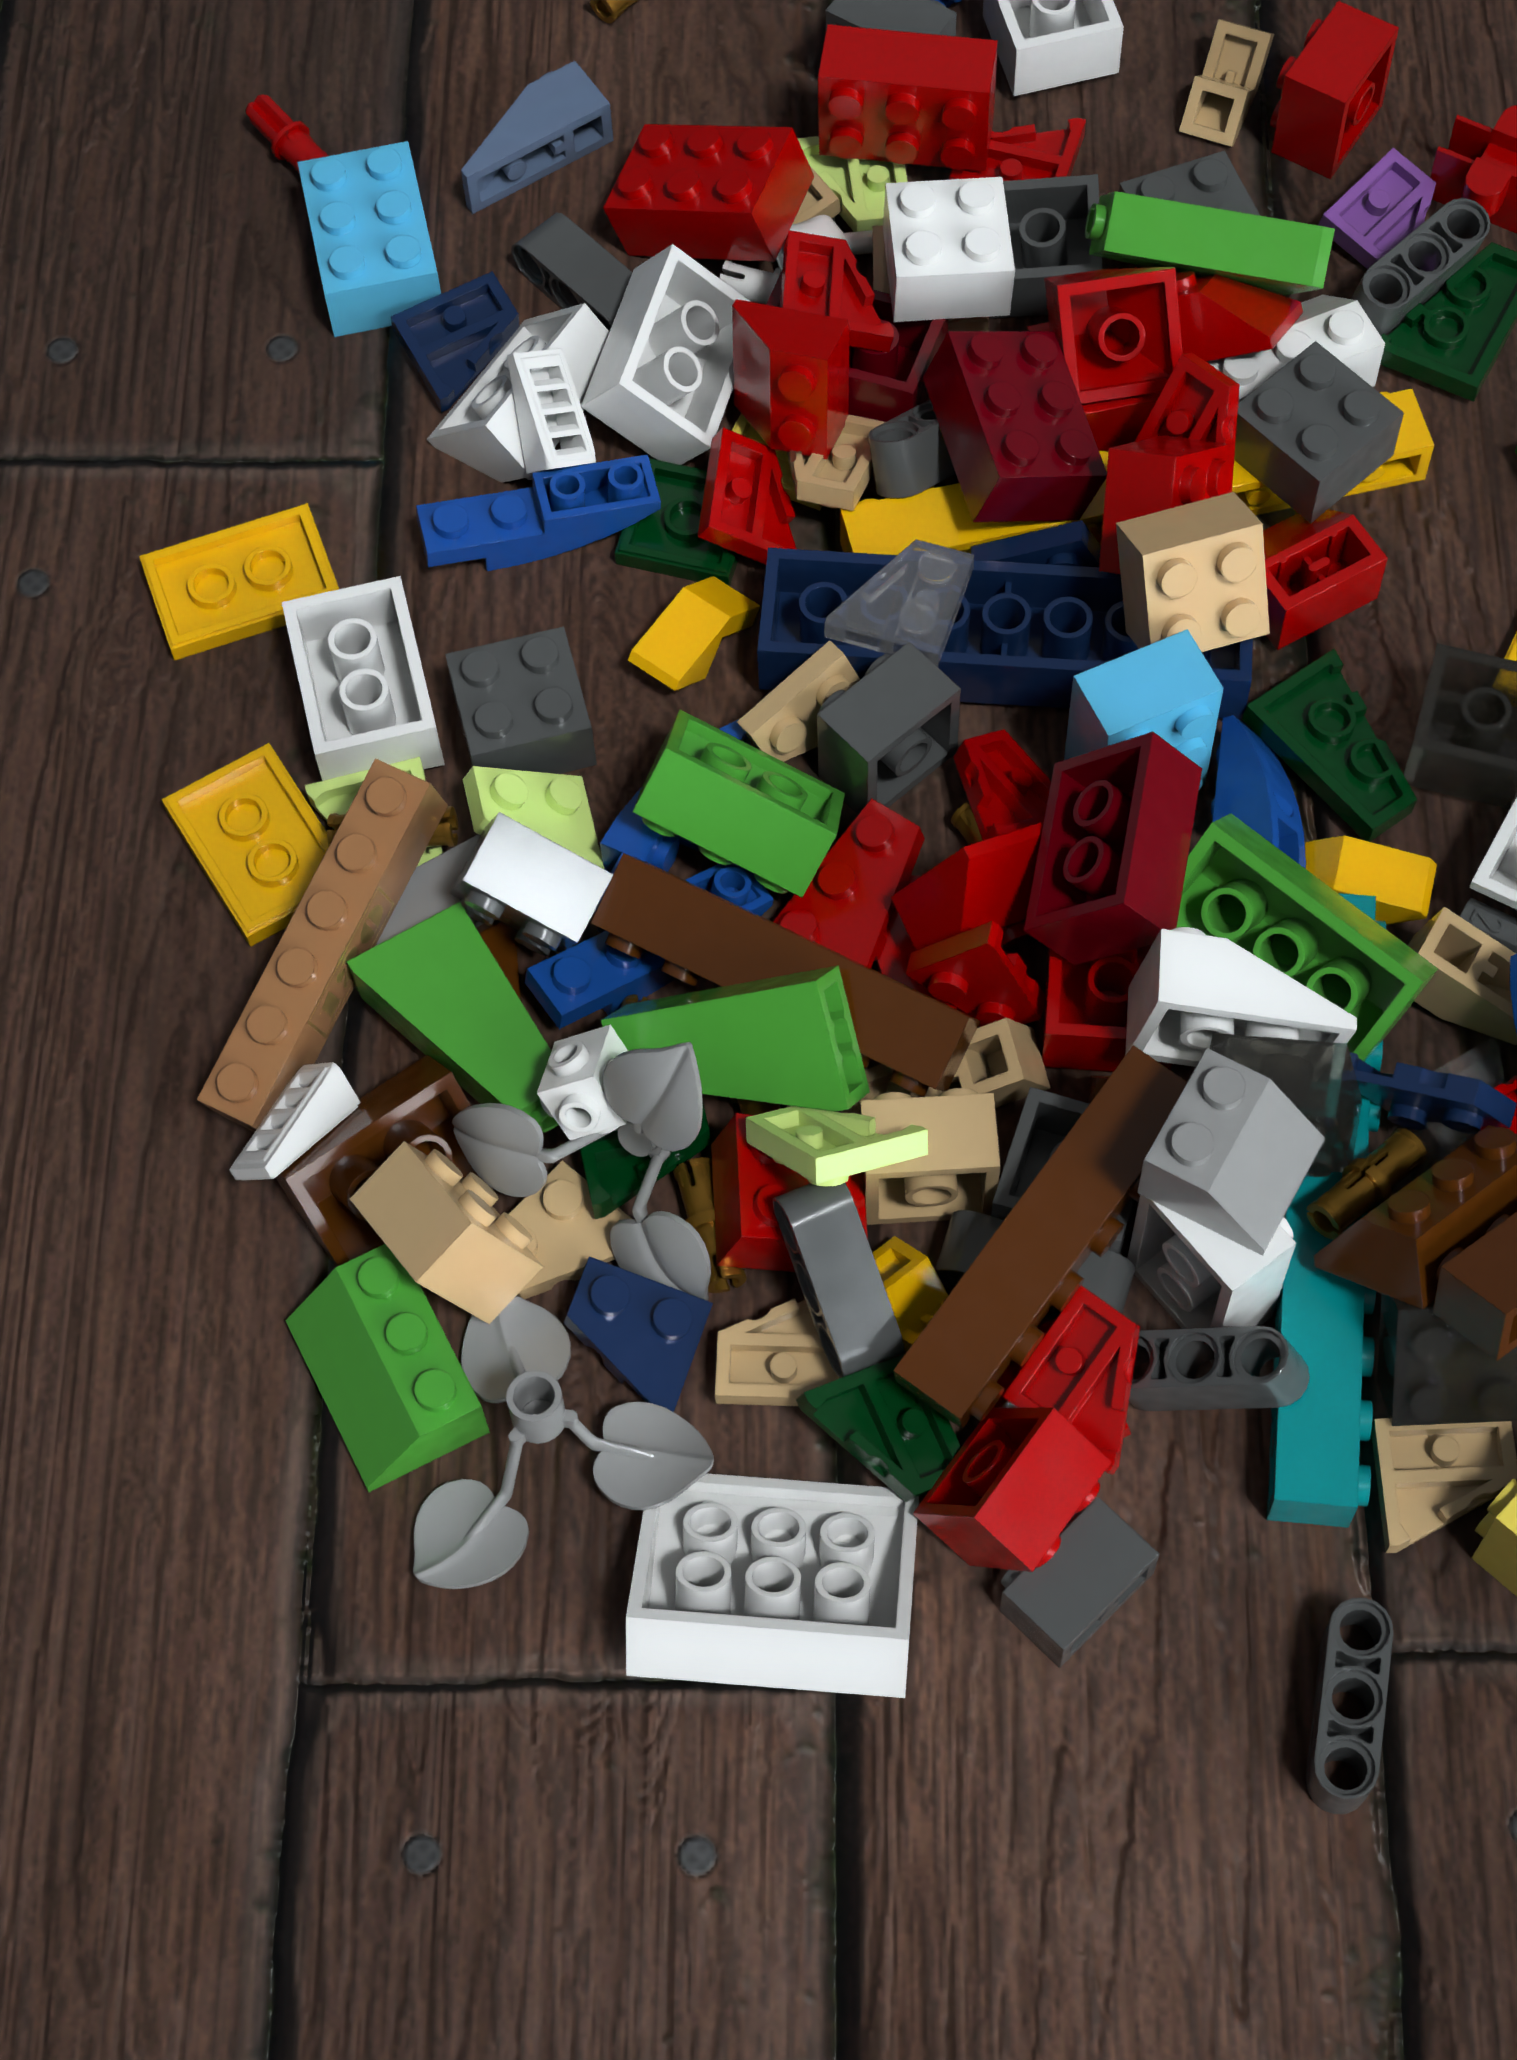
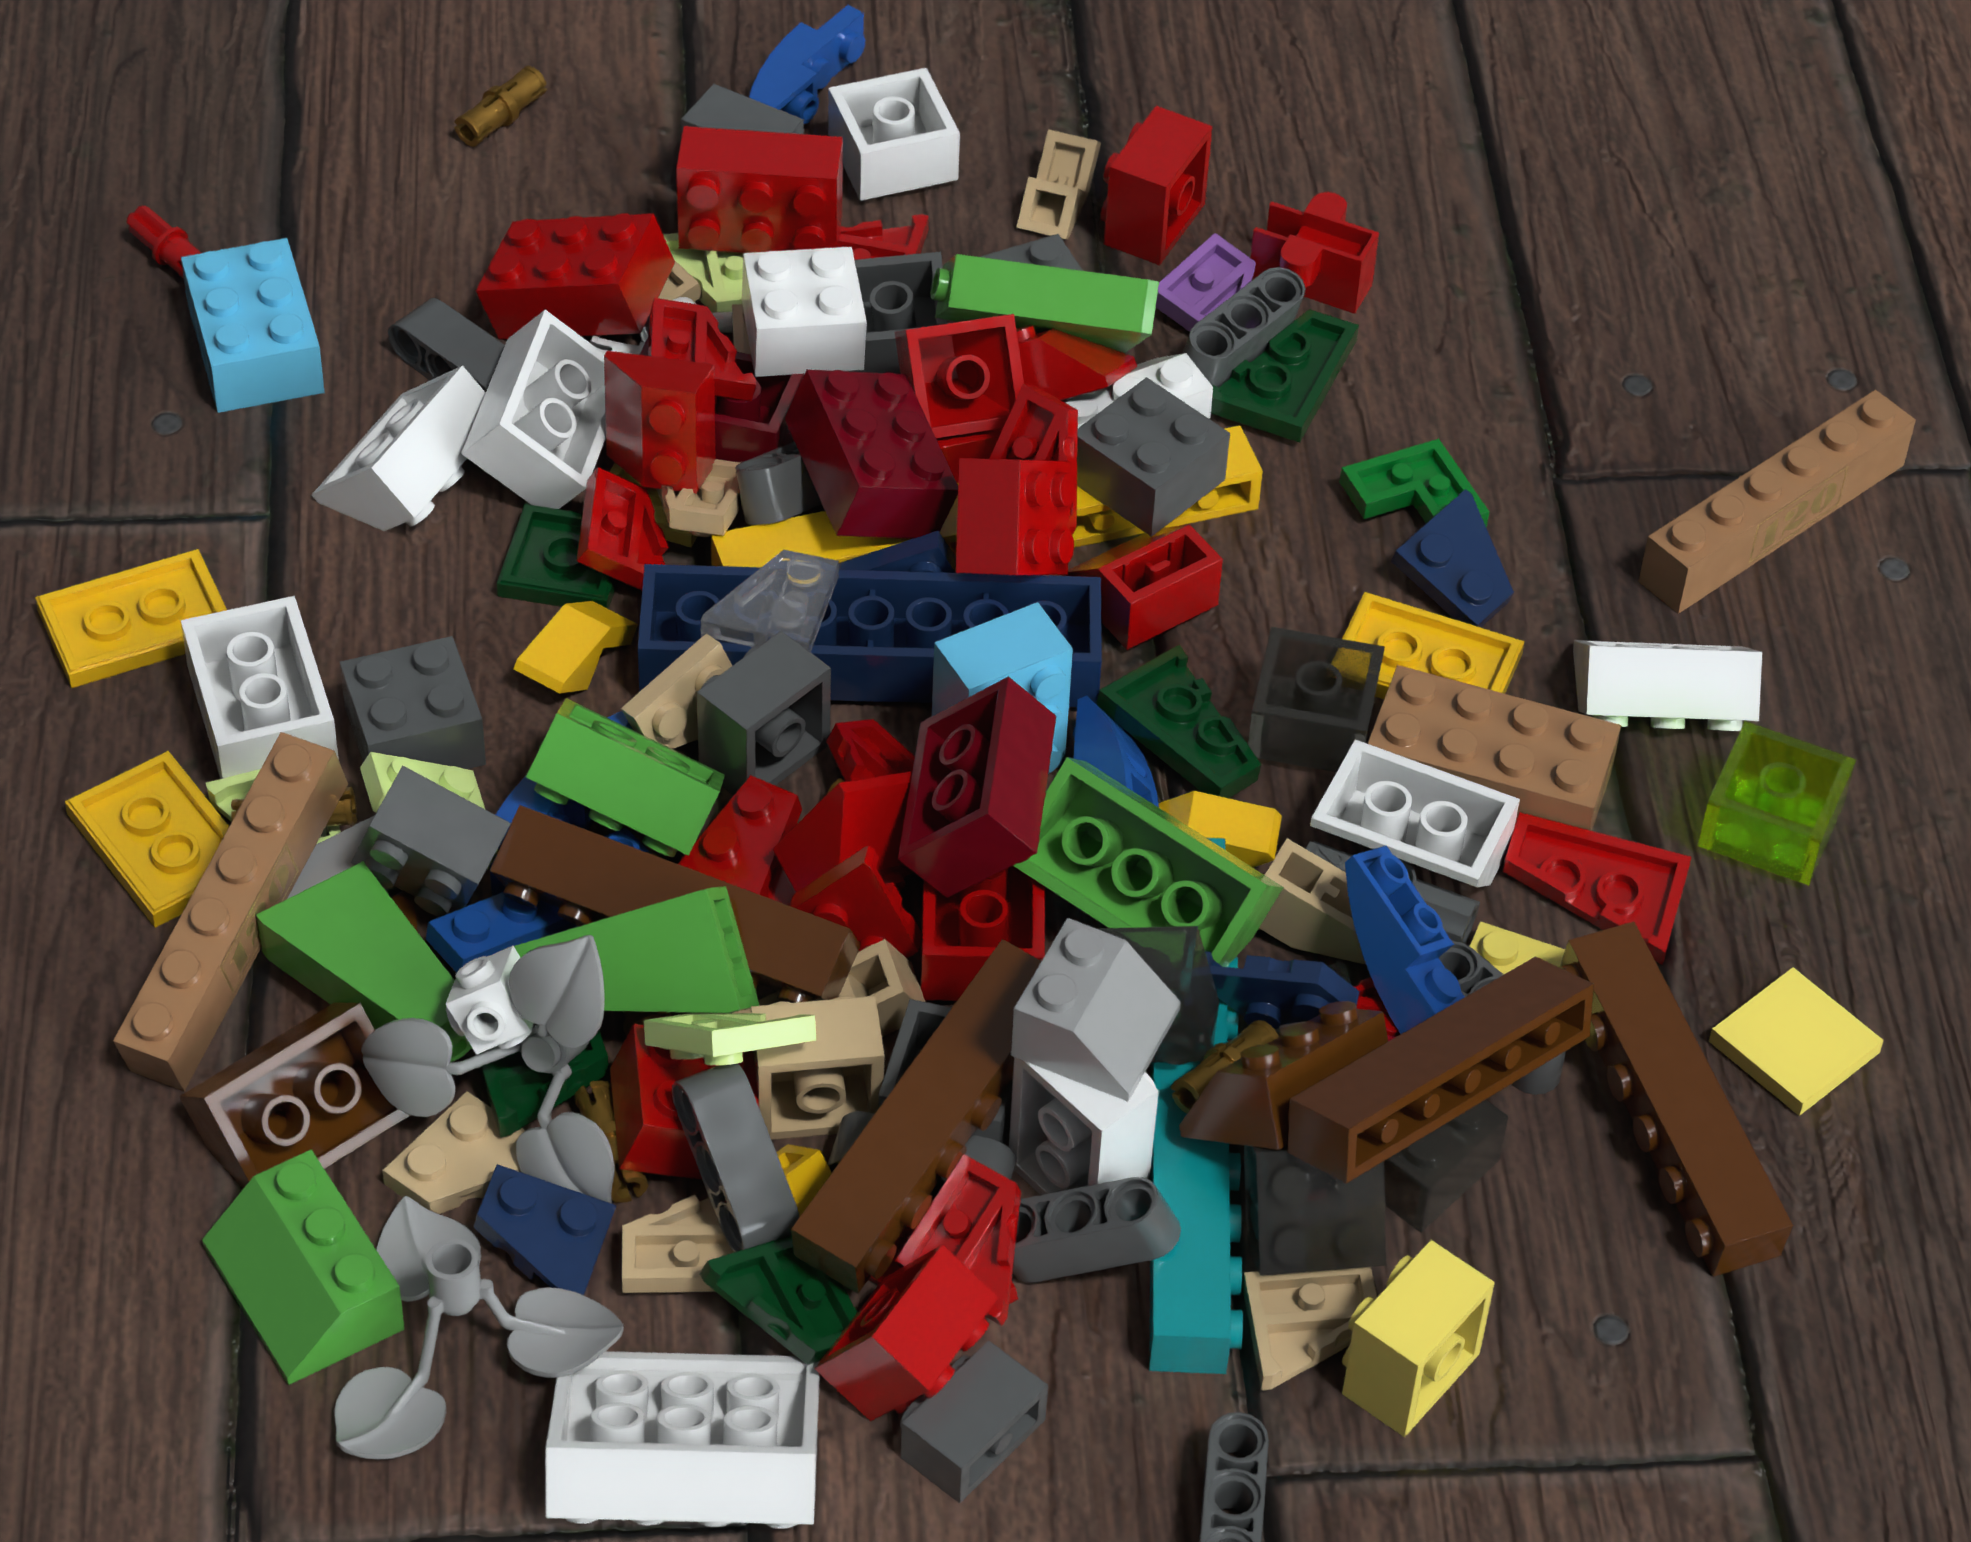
camera: 10 degrees left, 15 degrees down
(302, 1115) = (216, 1050): white slope -> none
(448, 1231) = (363, 1136): tan brick -> none
(456, 335) = (337, 405): dark blue wing -> none
(534, 432) = (420, 479): white slope -> none
(534, 523) = (438, 553): blue slope -> none
(541, 132) = (409, 237): sand blue slope -> none
(1194, 572) = (1044, 554): tan brick -> none
(1211, 986) = (1079, 883): white slope -> none

